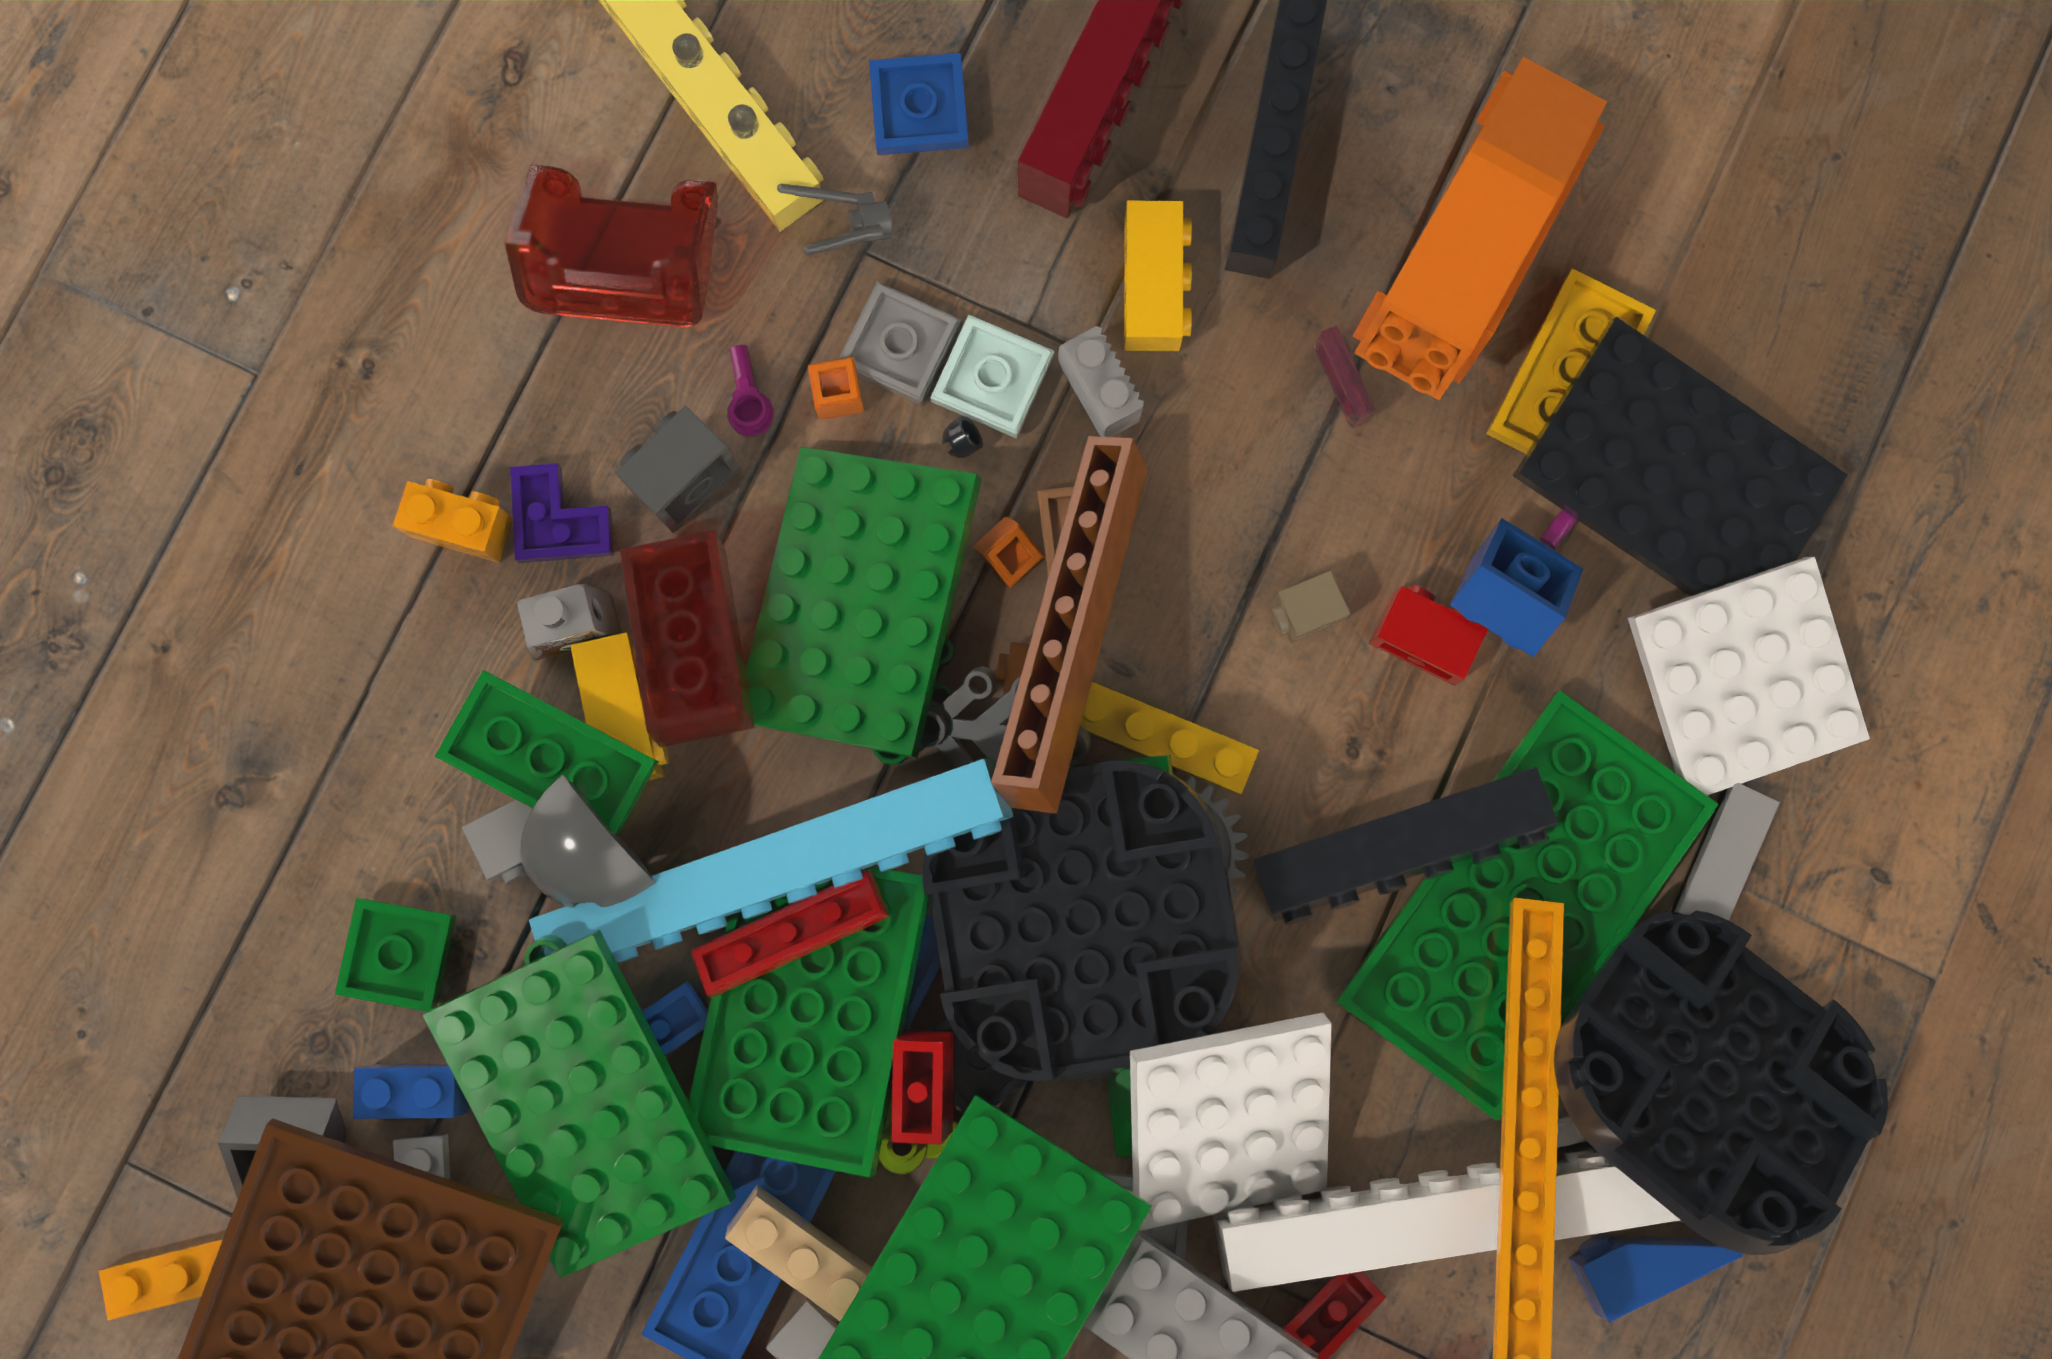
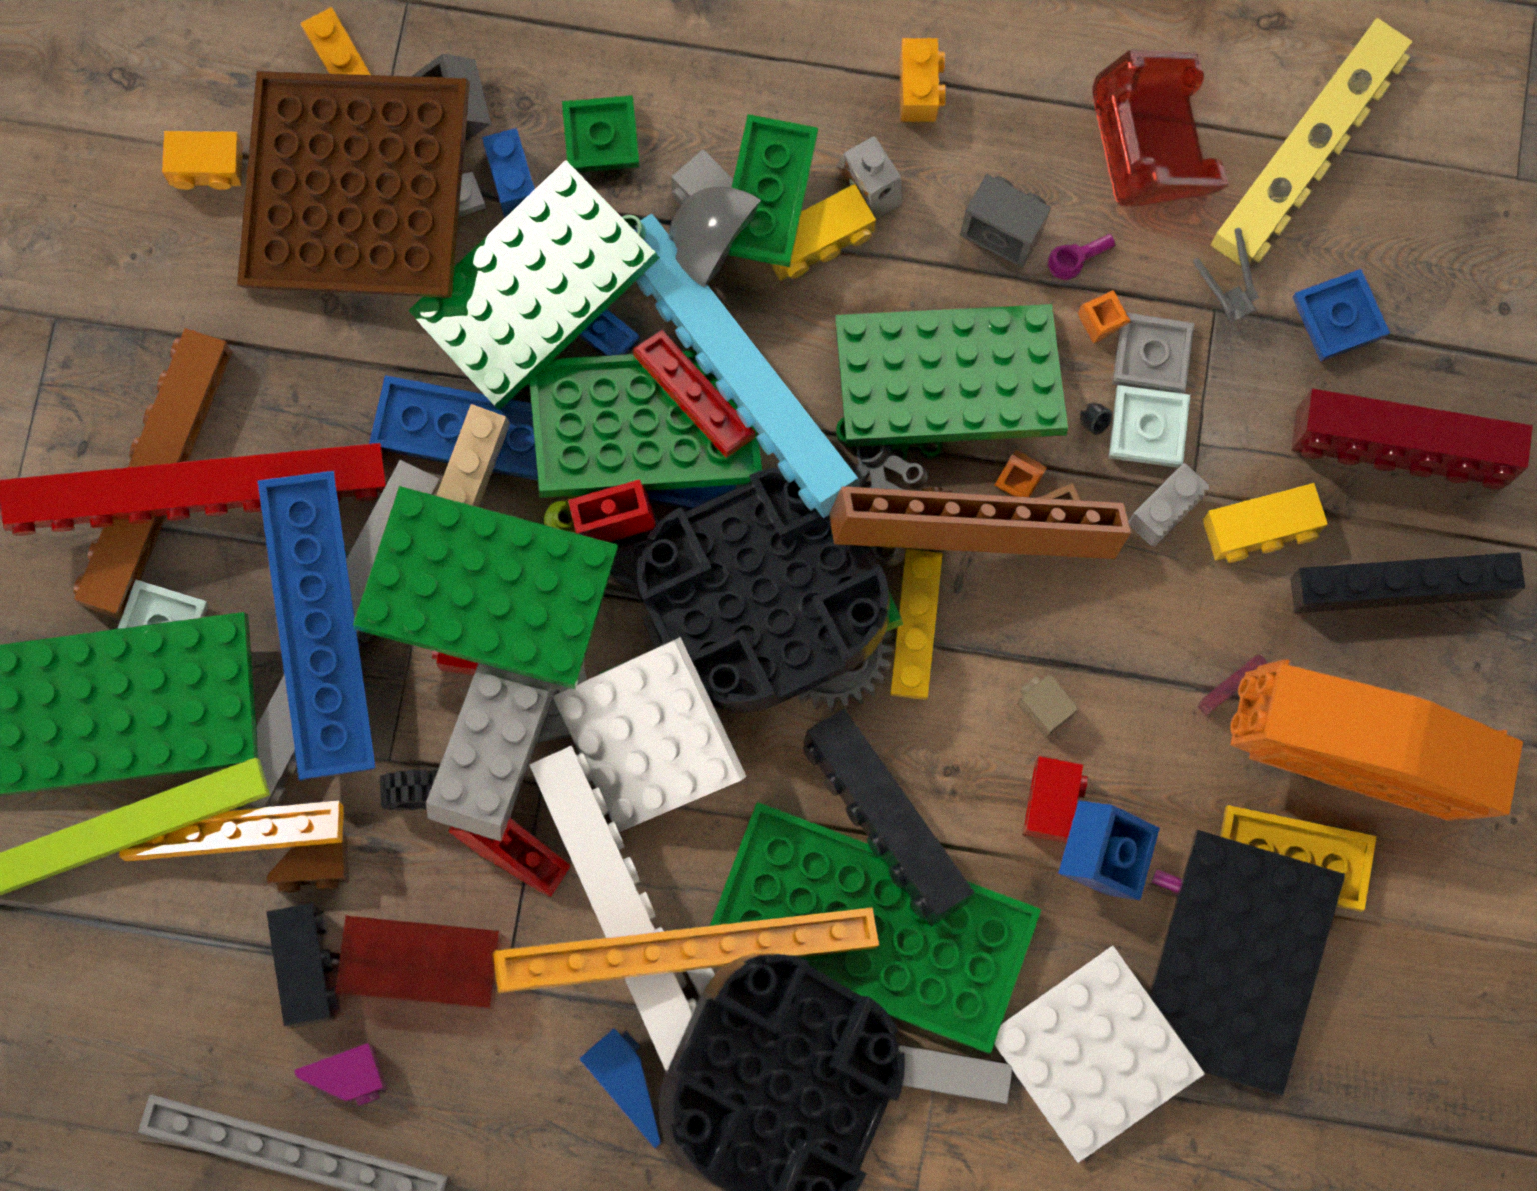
camera: 70 degrees right, 5 degrees down
(548, 530) = (935, 145): dark purple plate -> none
(686, 639) = (883, 261): clear red brick -> none

